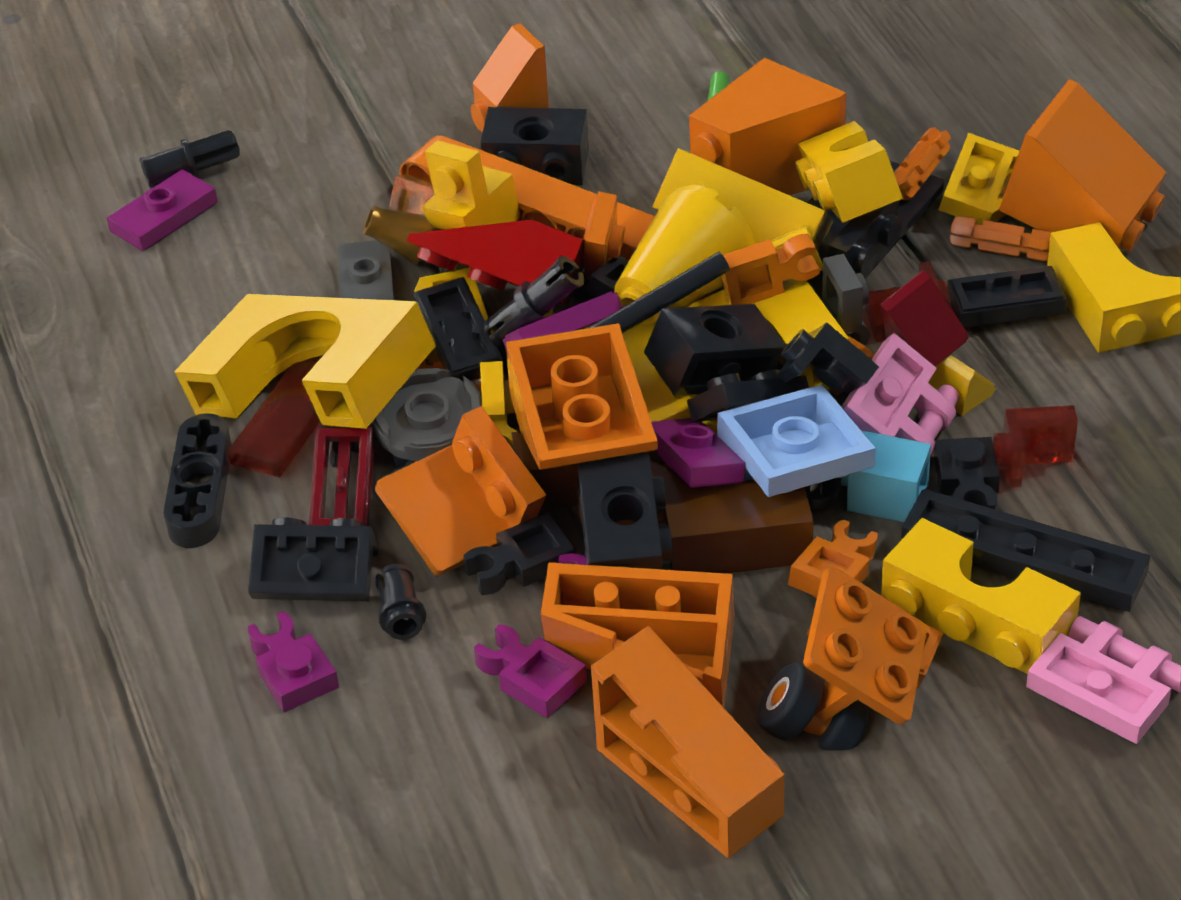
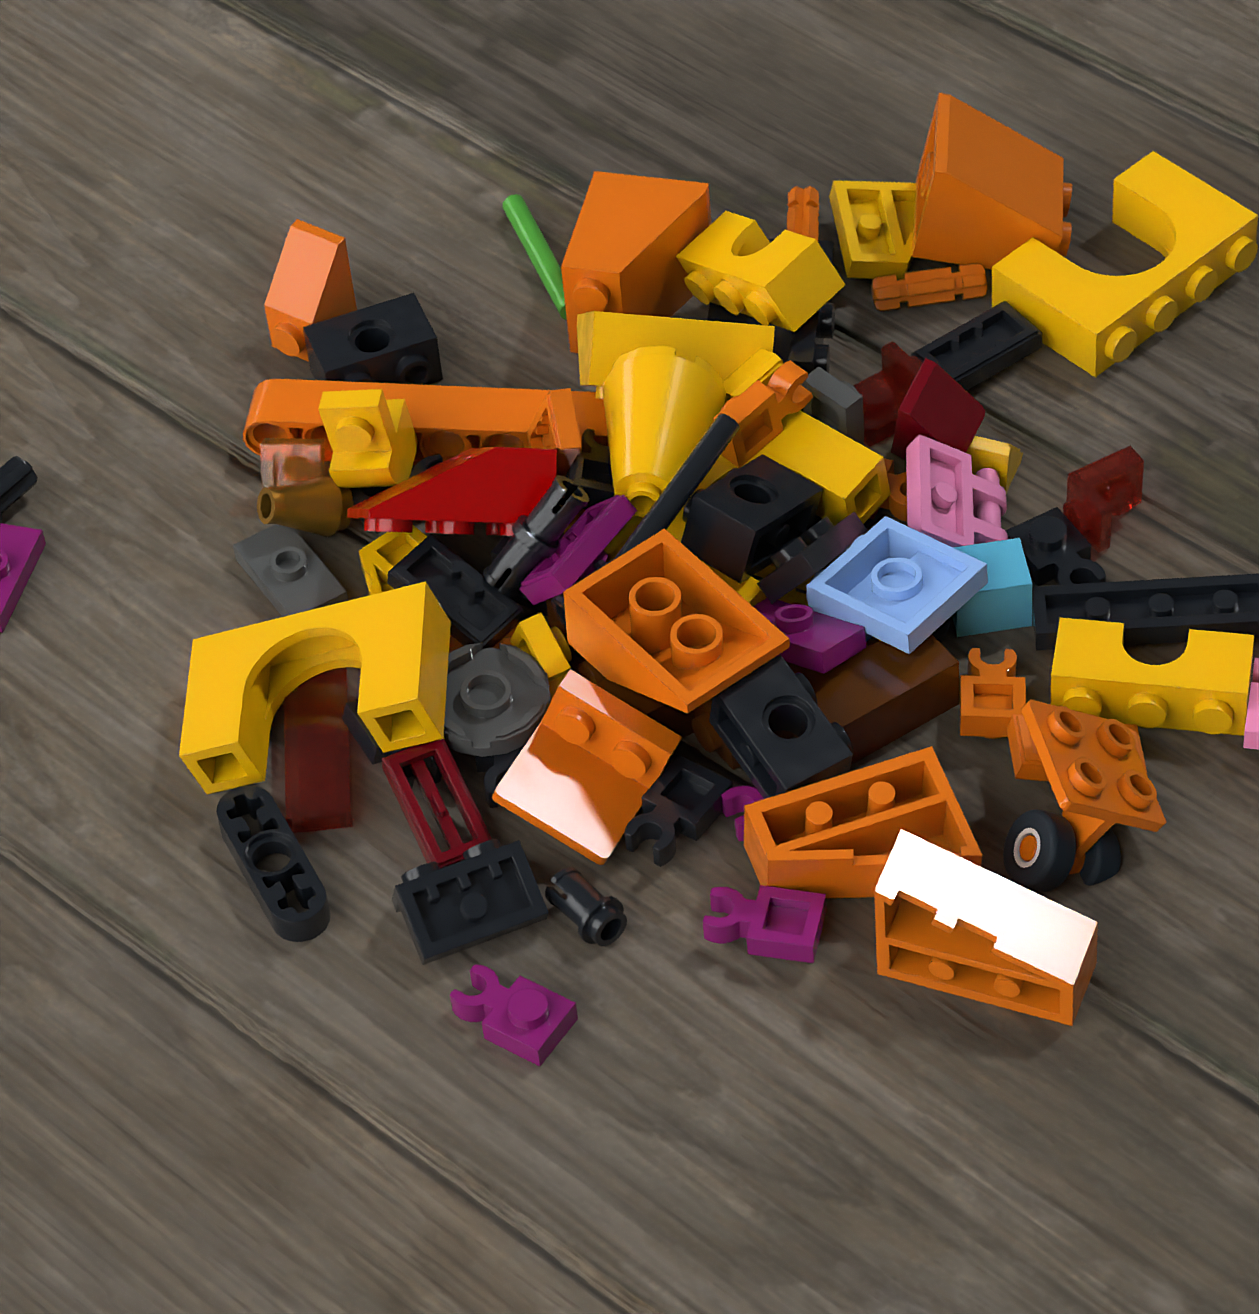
camera: 25 degrees left, 5 degrees up
(834, 357) = (881, 486): black bracket -> none

